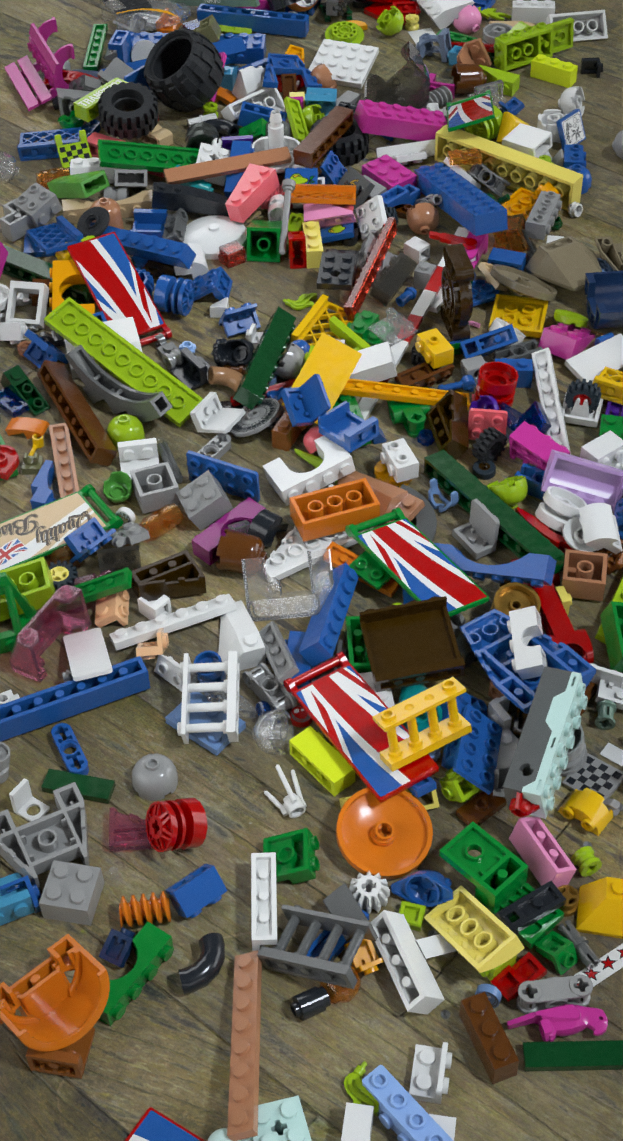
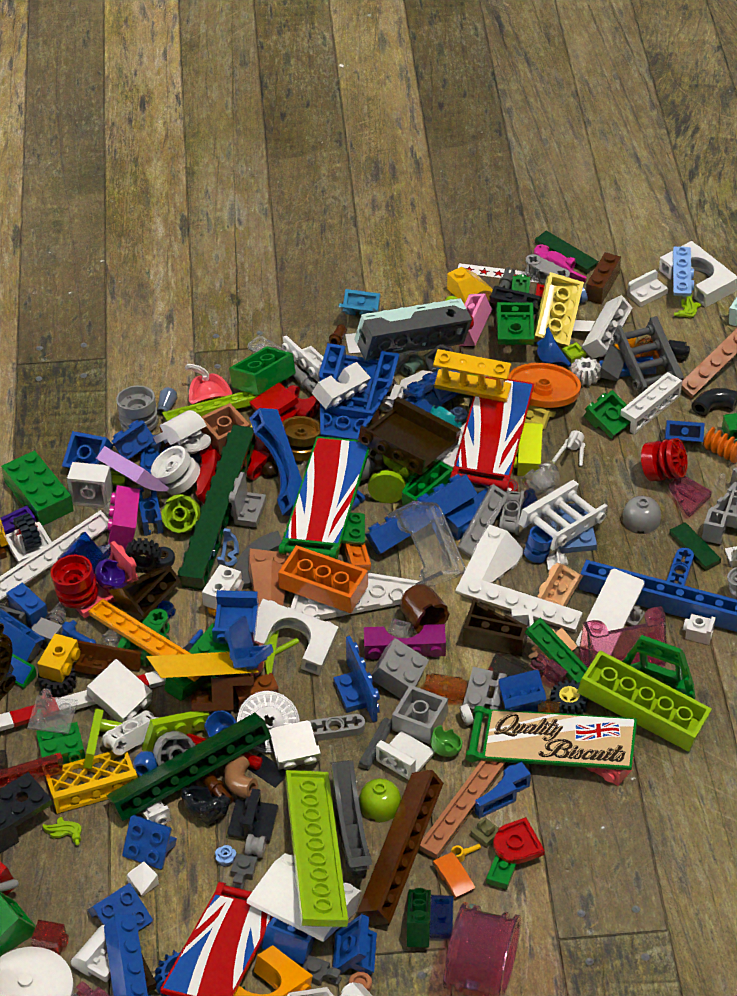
camera: 135 degrees left, 0 degrees up
(174, 295) = (172, 910): blue wheel -> none
(266, 525) = (377, 615): black brick -> none
(578, 618) = (275, 398): none -> red tile

